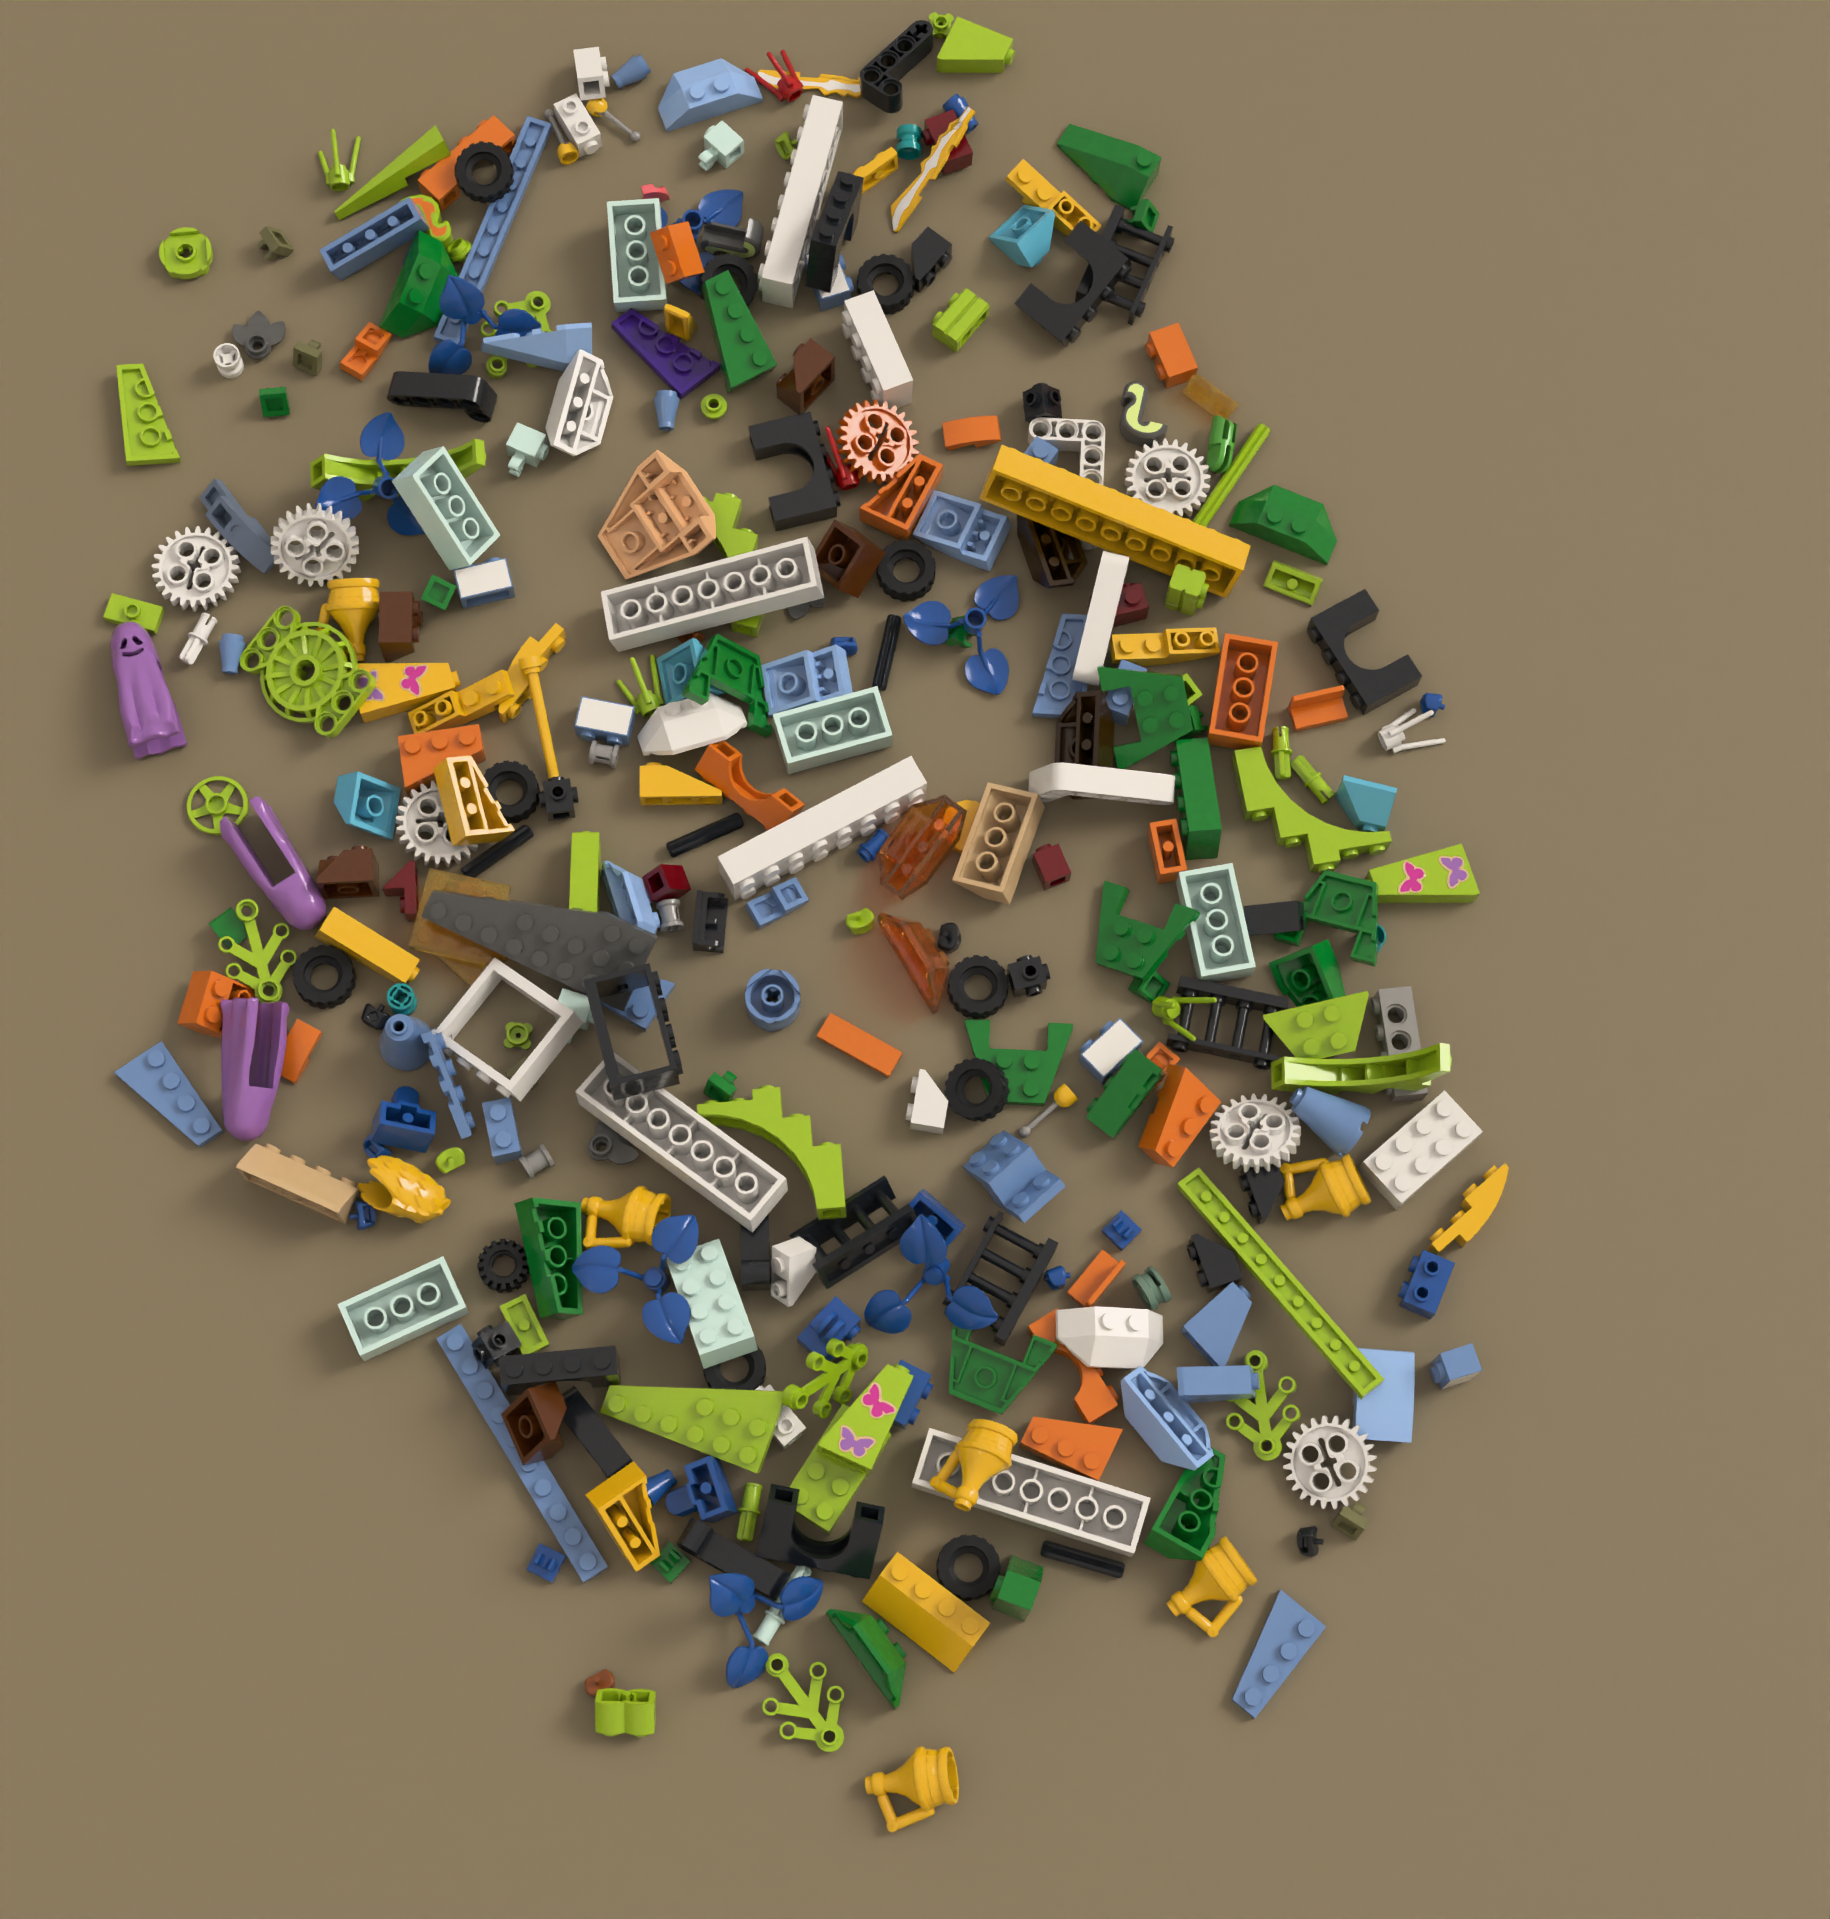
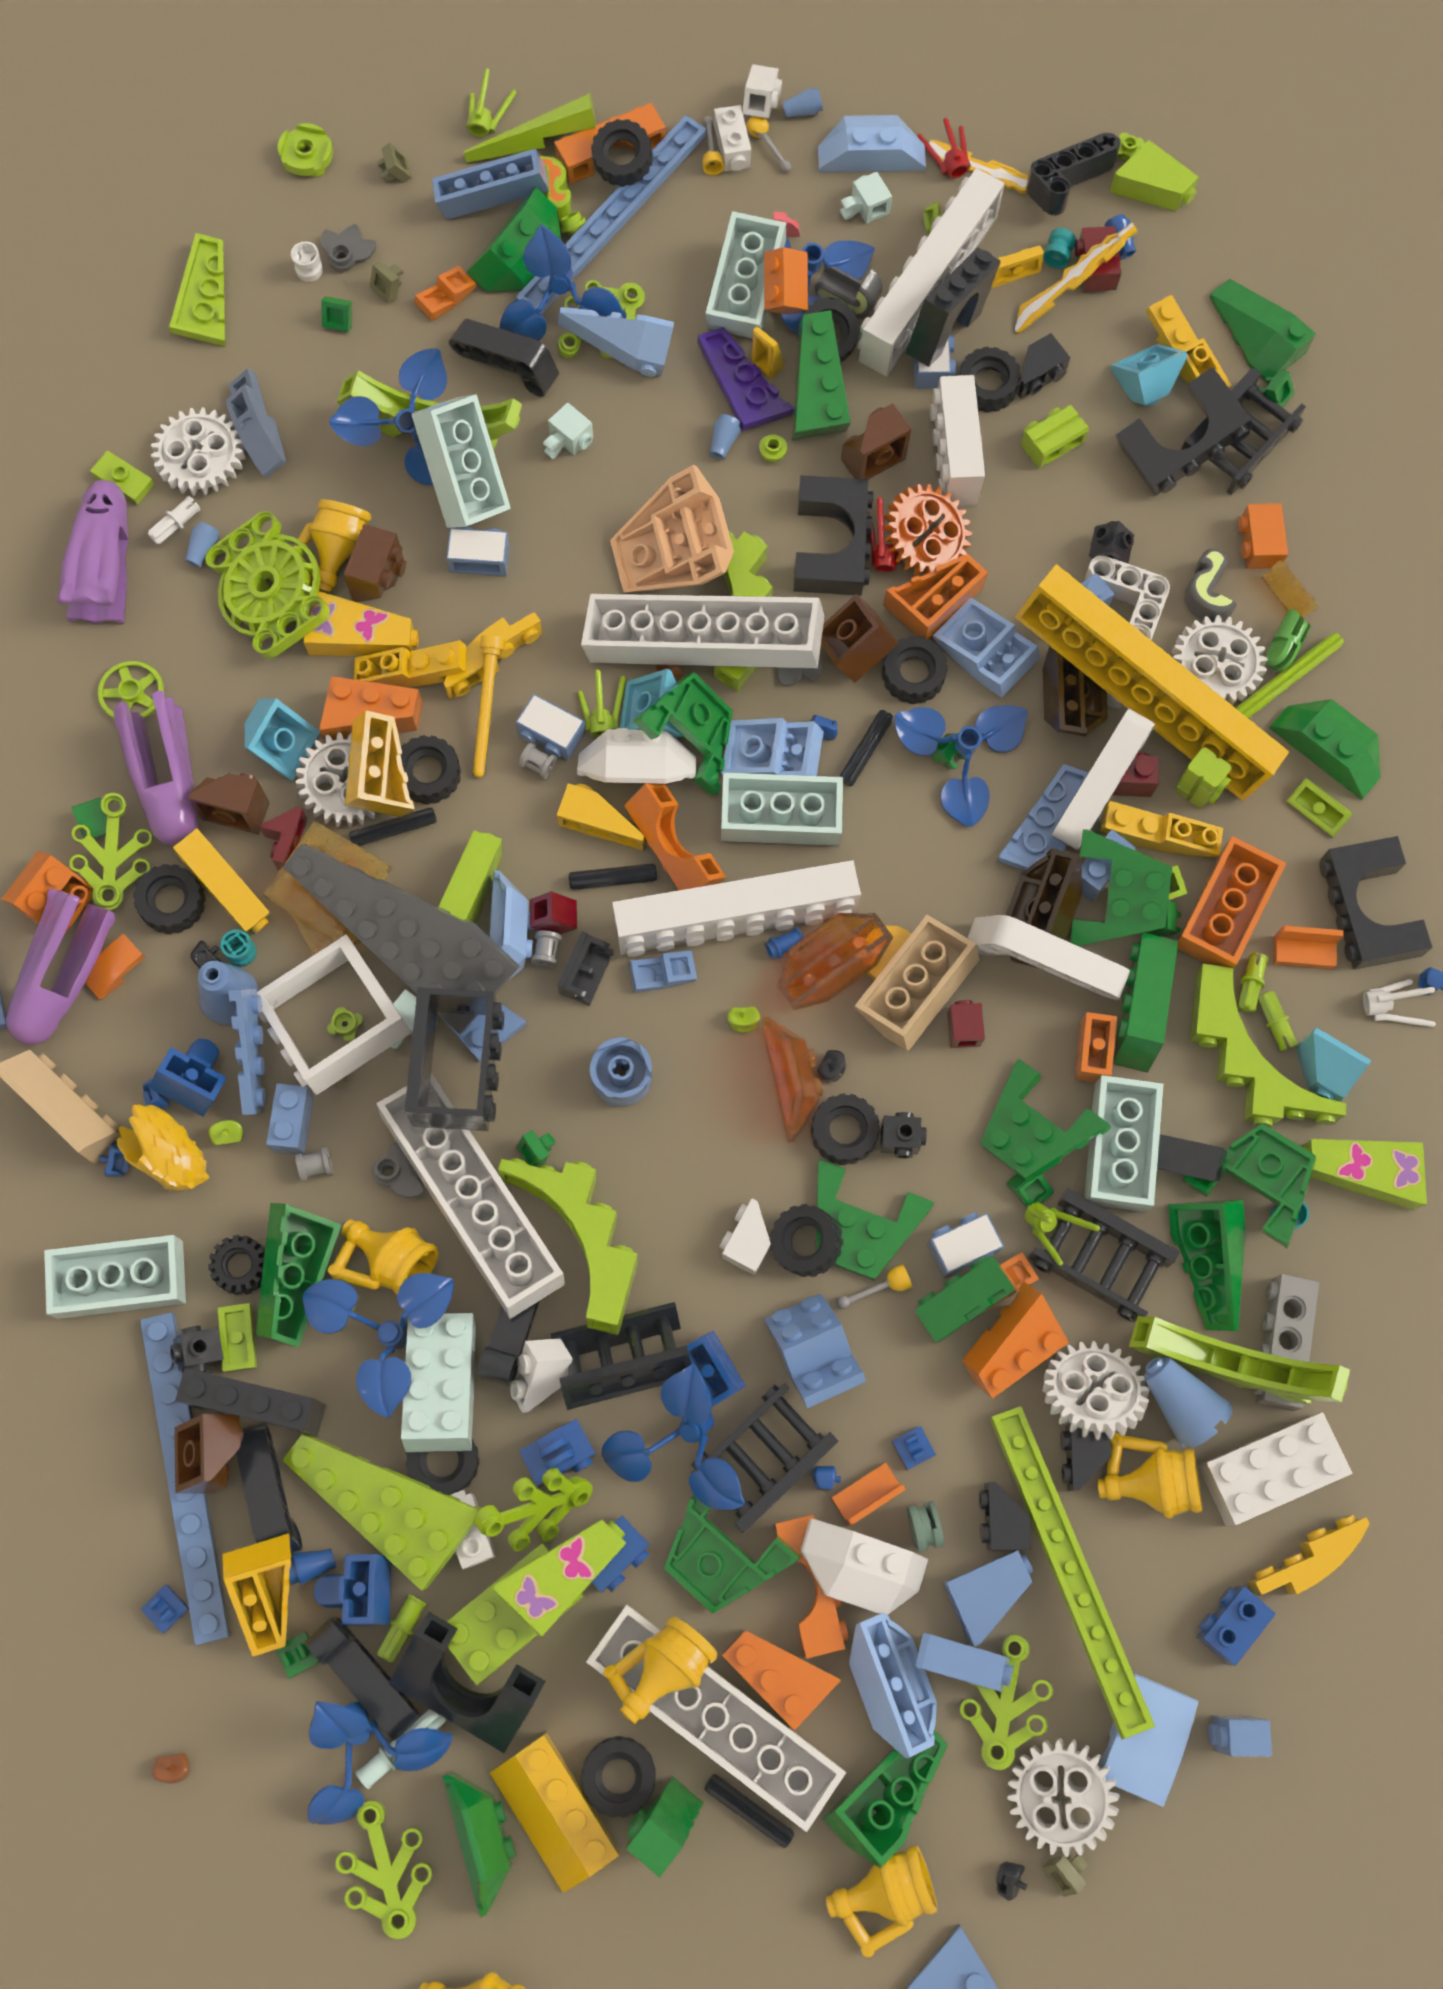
camera: 20 degrees right, 0 degrees up
(314, 544) = (306, 436): white gear -> none
(438, 592) = (427, 546): green brick -> none
(558, 798) = (474, 791): black brick -> none
(580, 405) = (638, 406): white wedge -> none
(625, 1712) = (184, 1812): lime brick -> none
(859, 1045) = (698, 1150): orange tile -> none
(971, 430) = (1032, 550): orange slope -> none
(1321, 1027) = (1206, 1295): lime wing -> none

